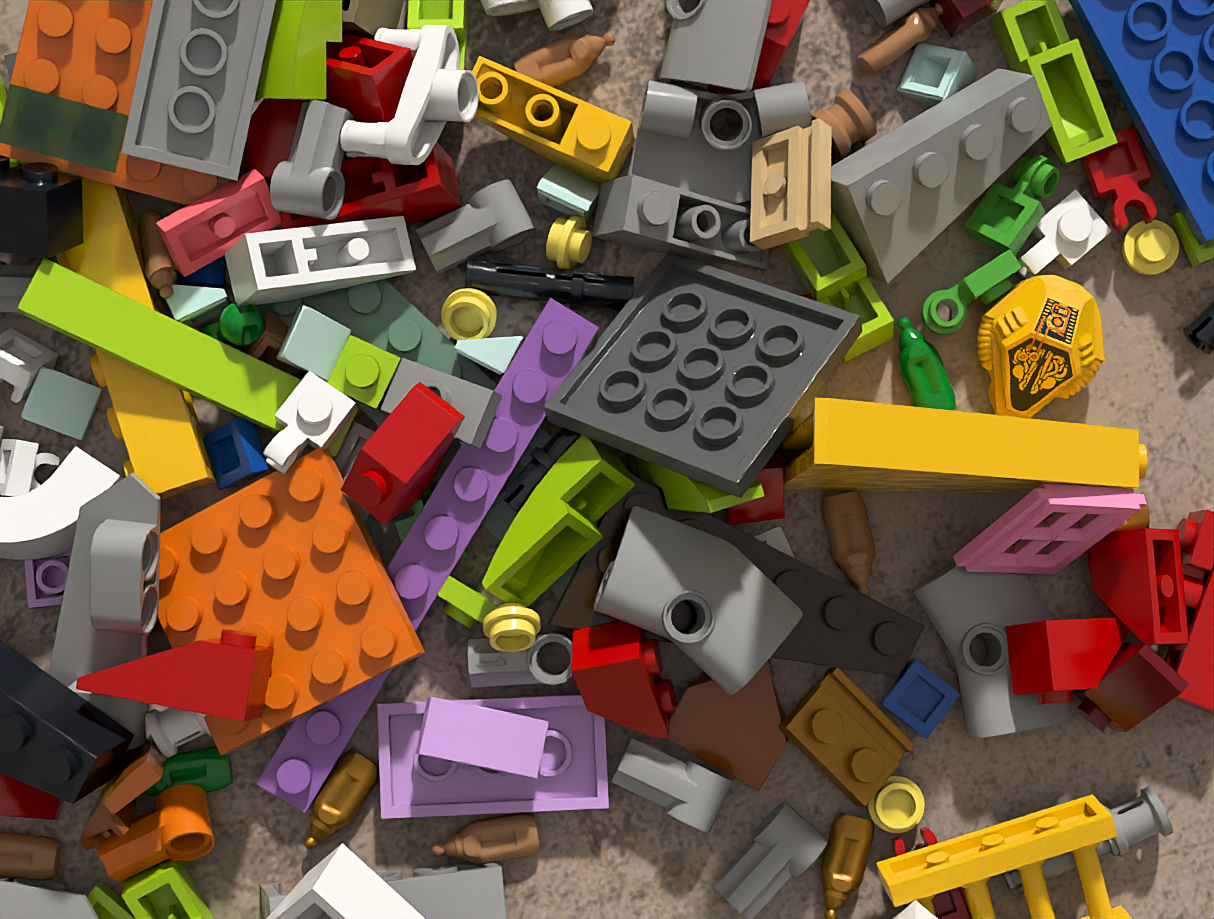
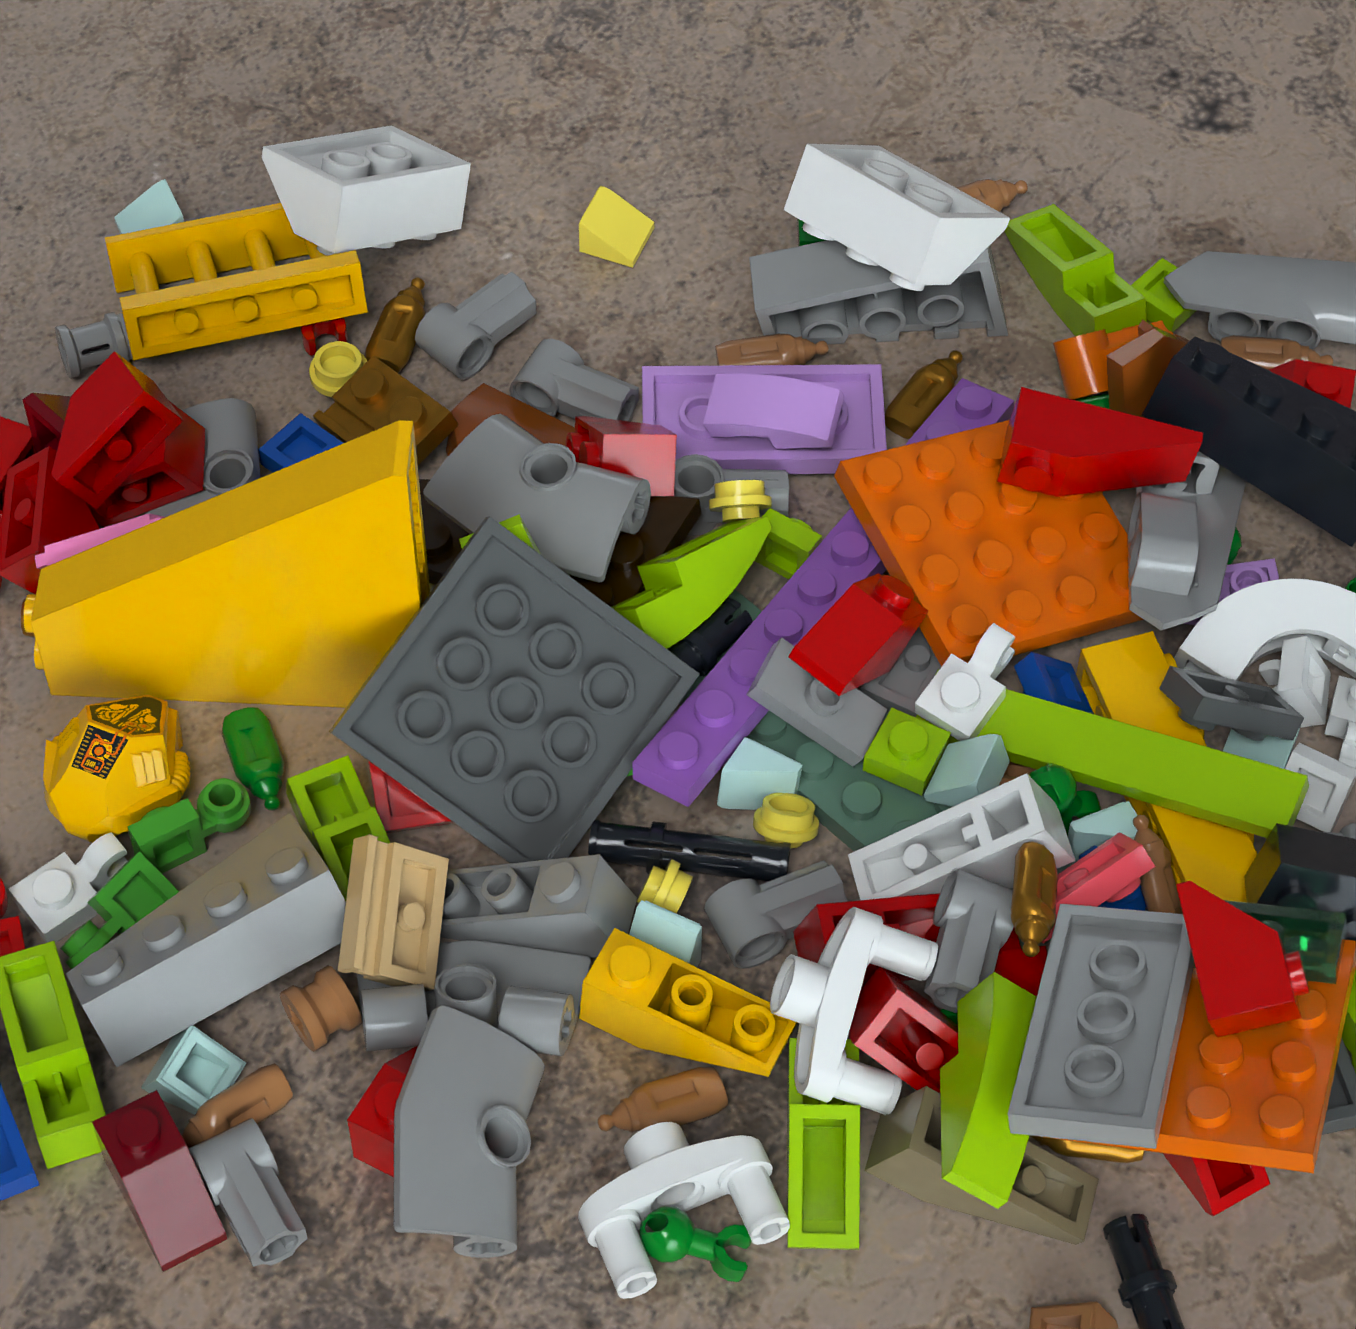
camera: 175 degrees left, 30 degrees down
(78, 412) = (1243, 706): none -> dark grey plate
(88, 75) = (1240, 965): none -> red slope
(258, 181) = (1034, 895): none -> pearl gold piece
(1099, 655) = (111, 429): none -> red slope

